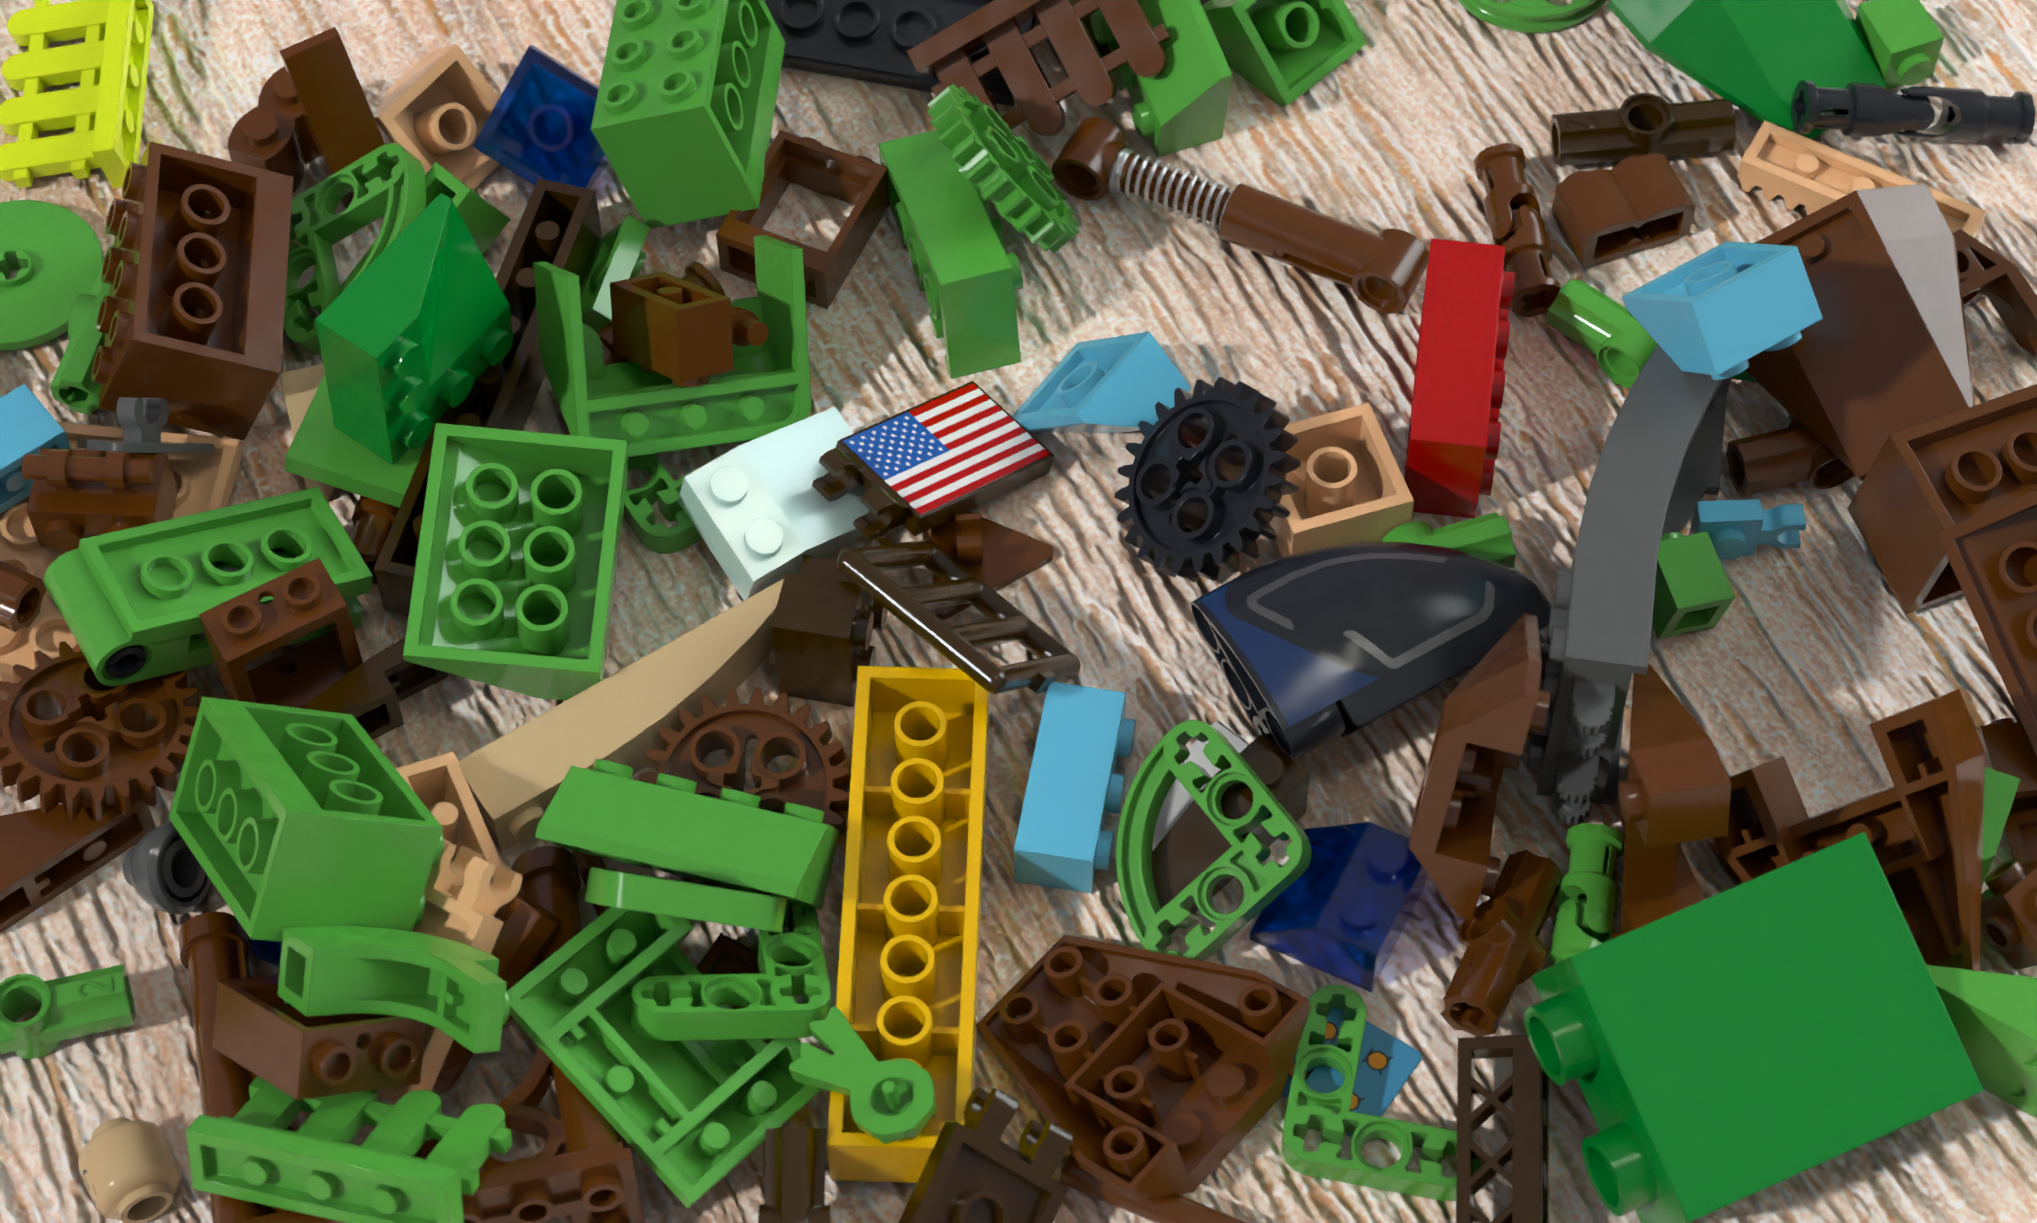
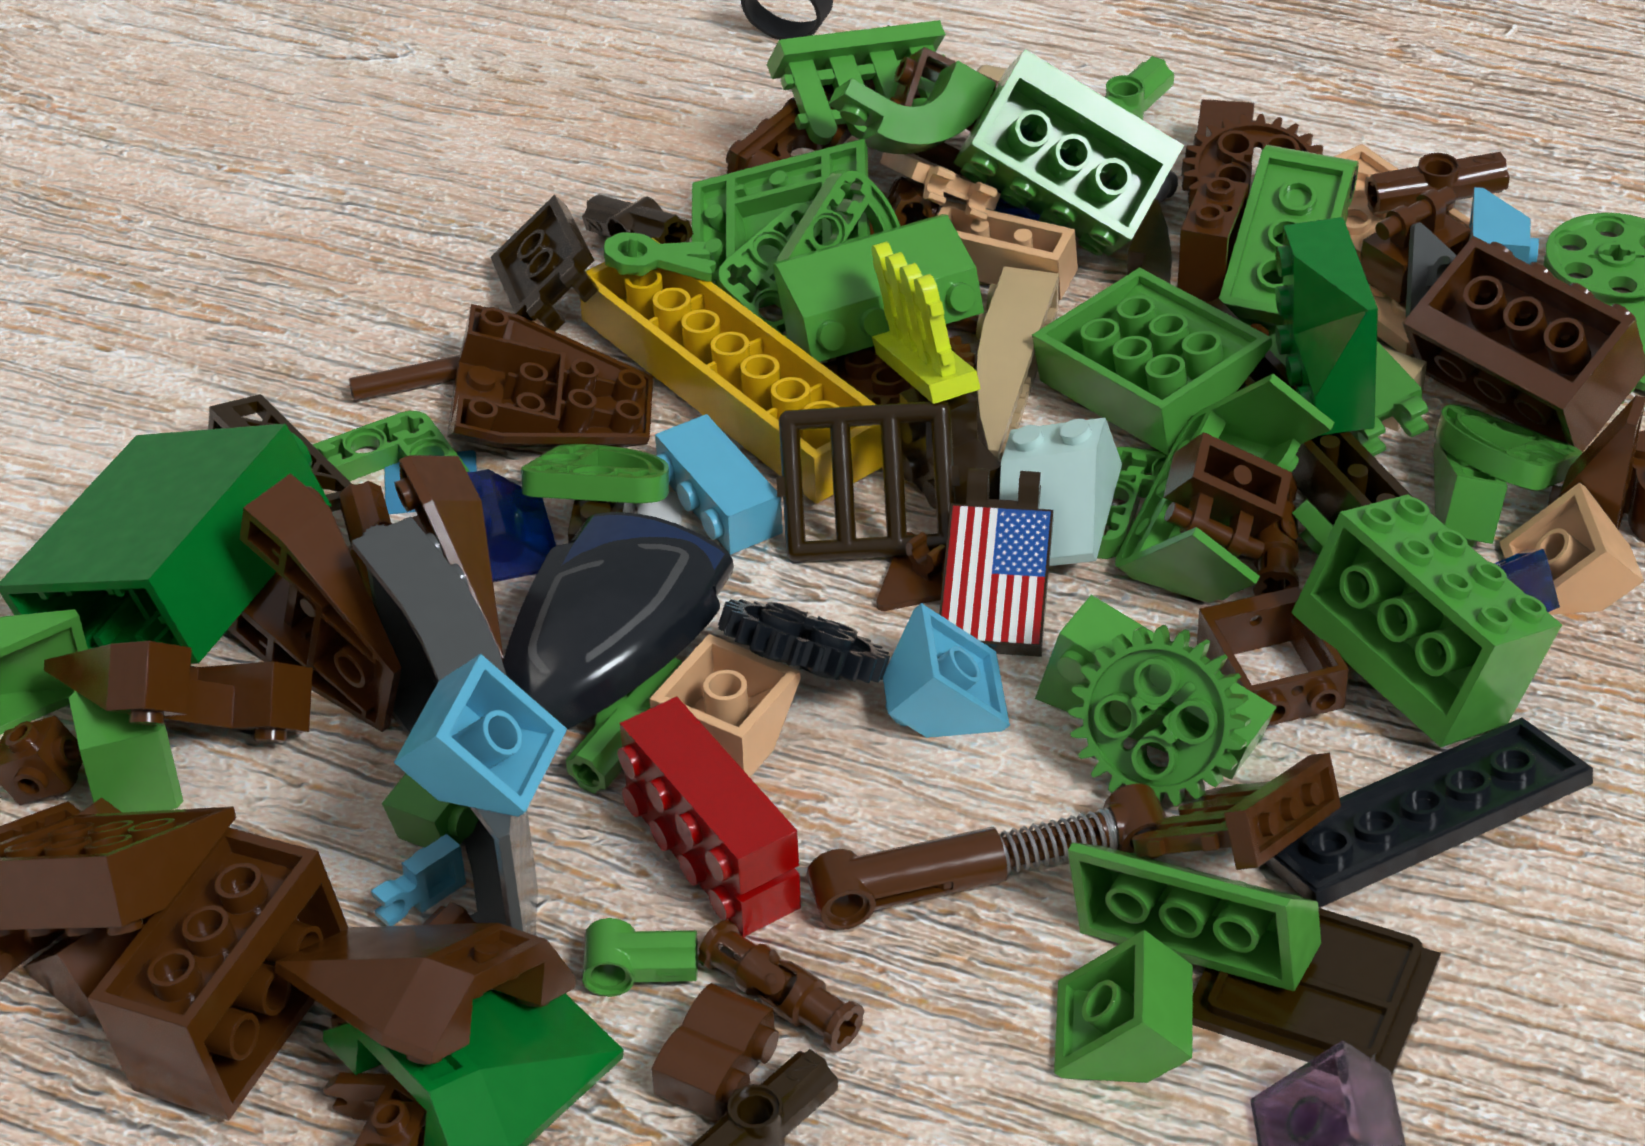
camera: 140 degrees right, 15 degrees down
(777, 660) = (918, 333): none -> neon yellow fence

